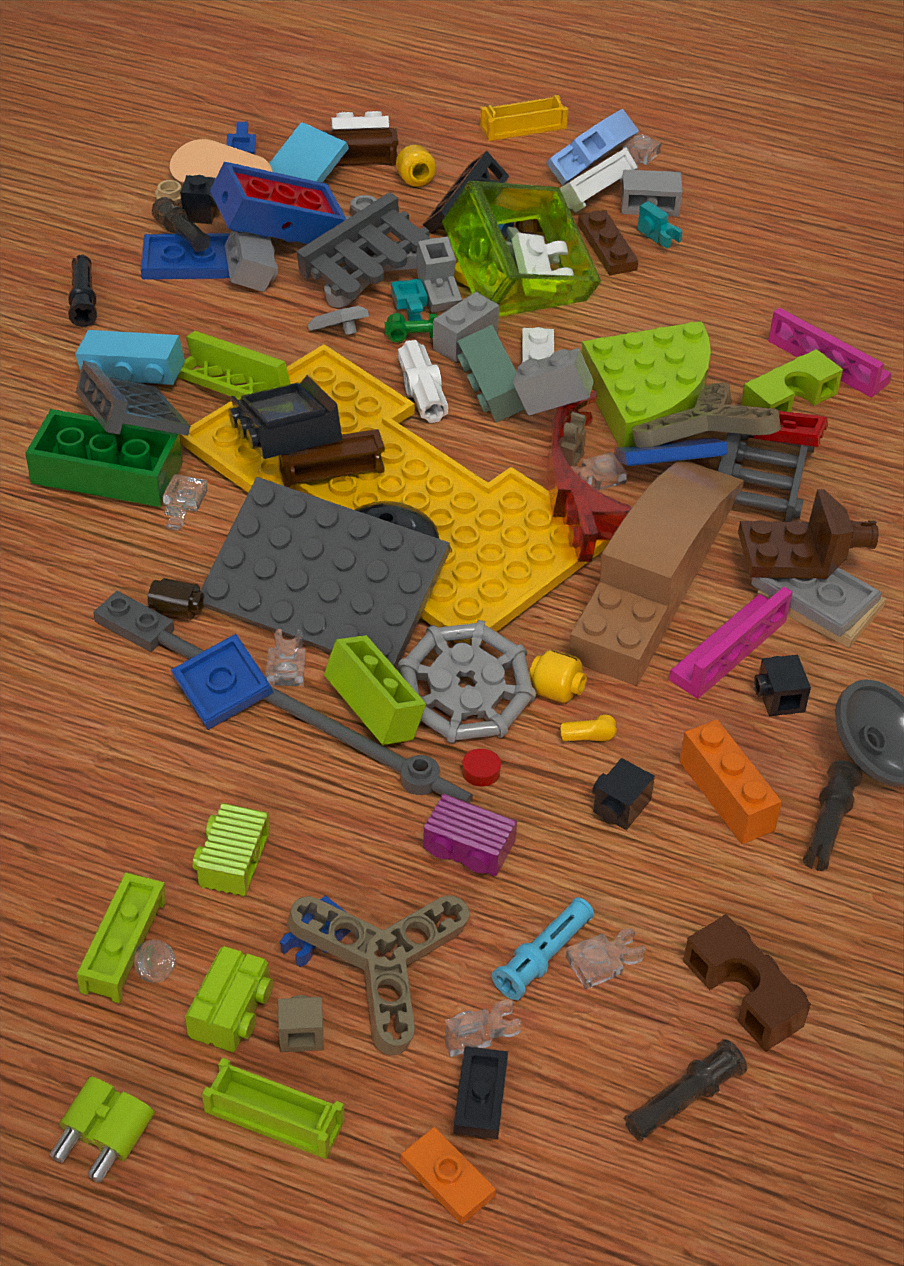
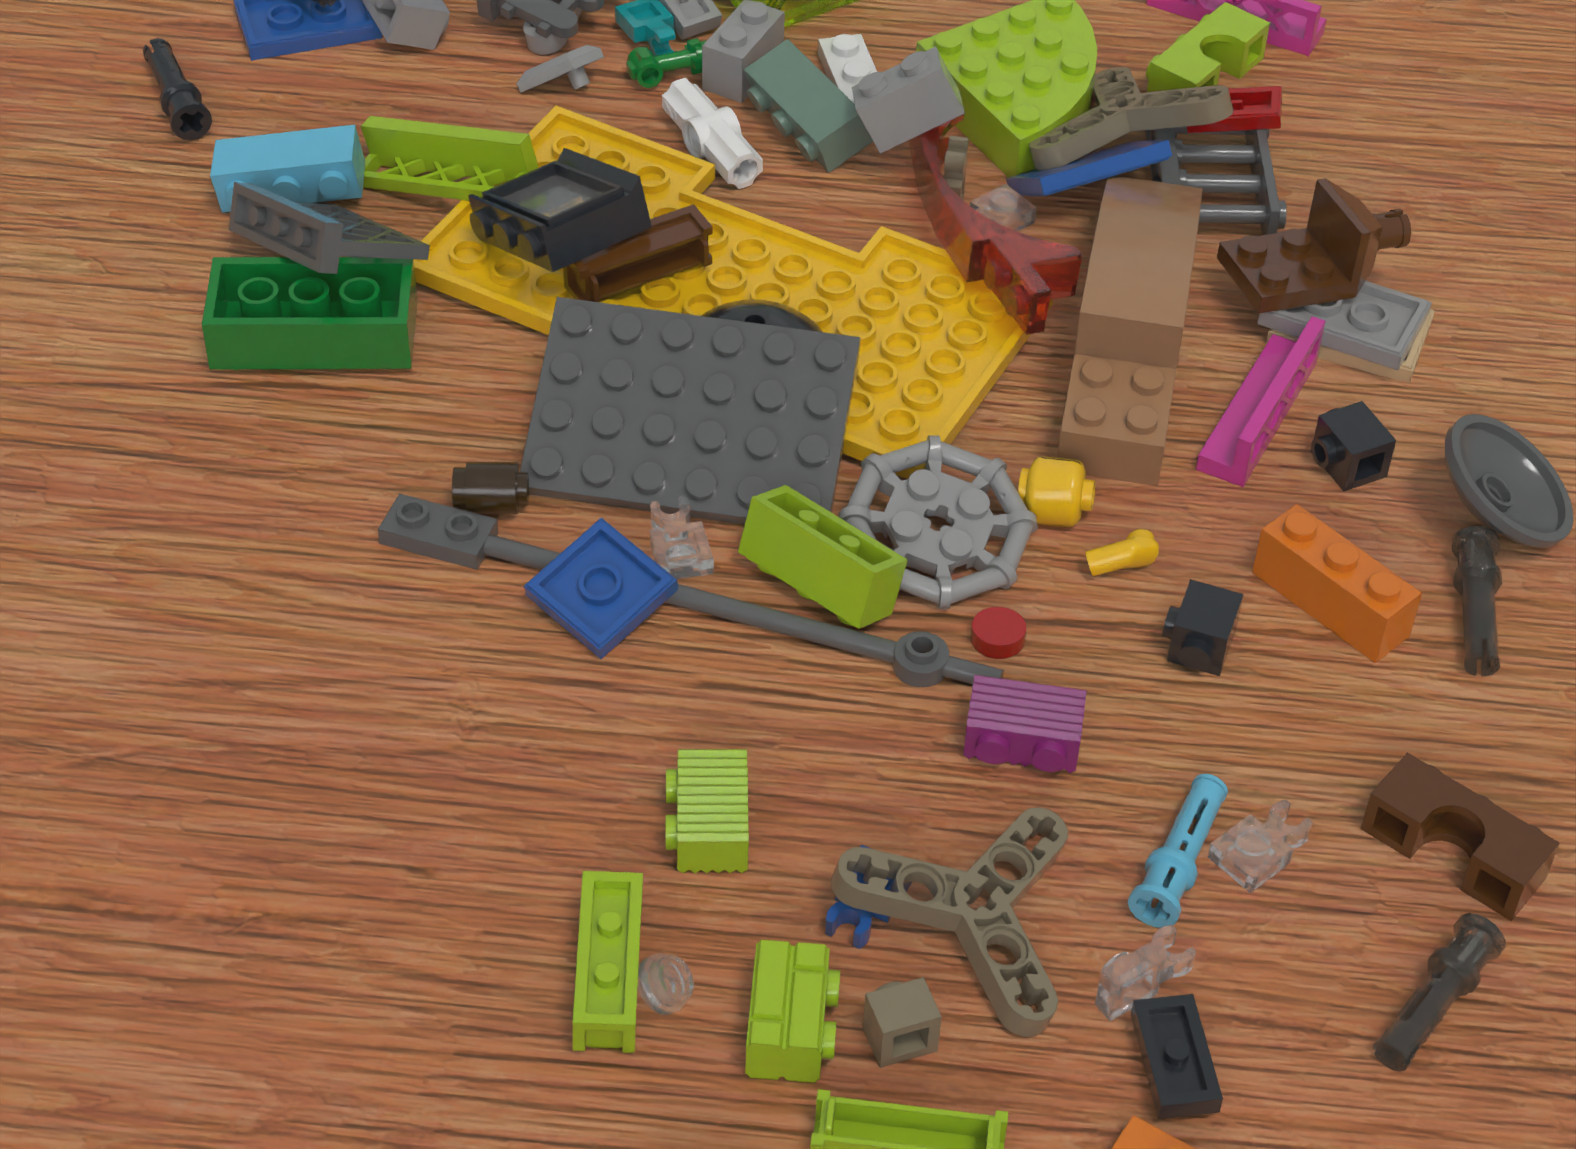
camera: 15 degrees left, 0 degrees up
(182, 495) = (439, 346): clear plate -> none

